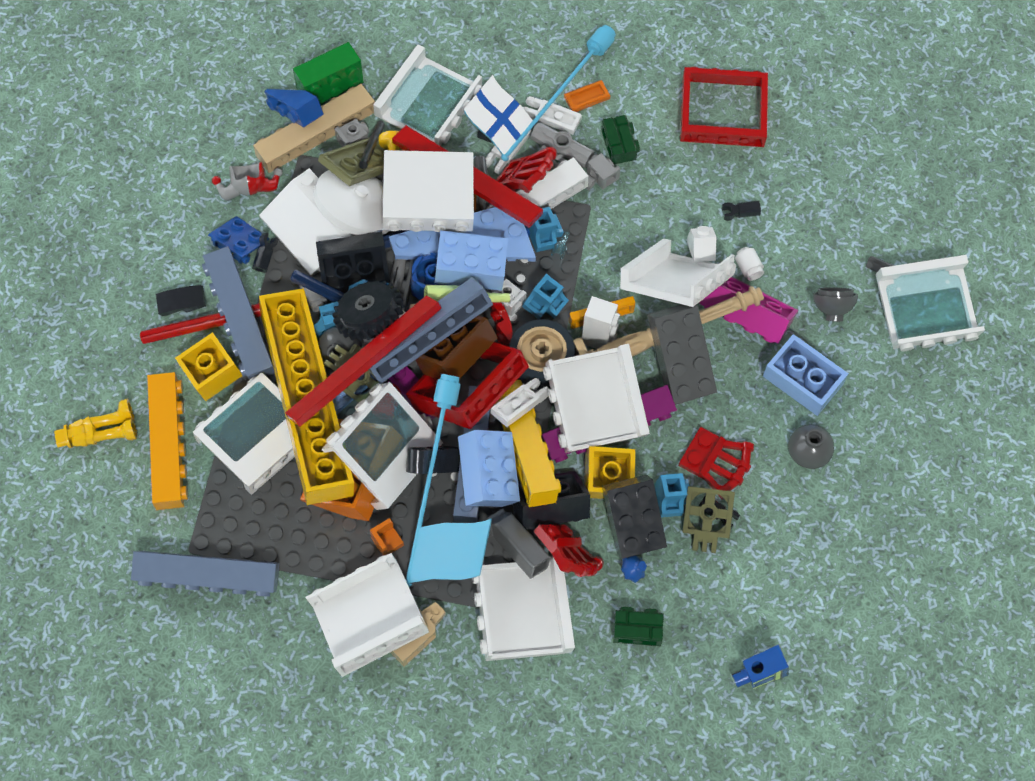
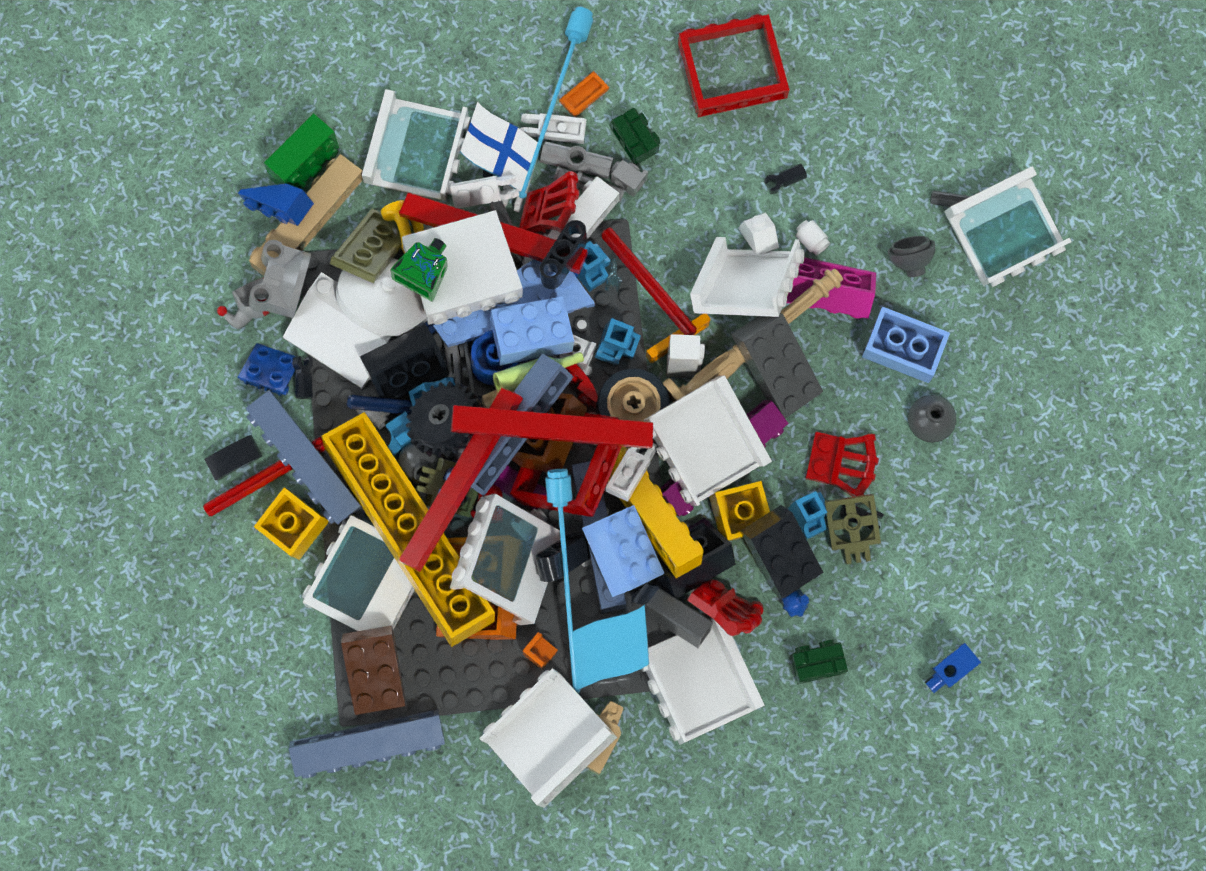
camera: 20 degrees left, 10 degrees up
(84, 431) = (185, 634): yellow piece -> none
(165, 441) = (274, 616): light orange brick -> none
(232, 506) = (373, 670): none -> reddish brown brick
(274, 165) = (281, 280): none -> light grey piece
(351, 132) = (346, 221): light grey brick -> none
(371, 145) = (376, 223): black bar -> none
(391, 177) = (422, 268): none -> green torso
(459, 338) = (552, 427): none -> red tile
(471, 143) = (482, 191): none -> white hinge
(519, 204) = (563, 244): none -> black beam
(589, 255) = (648, 282): none -> red axle

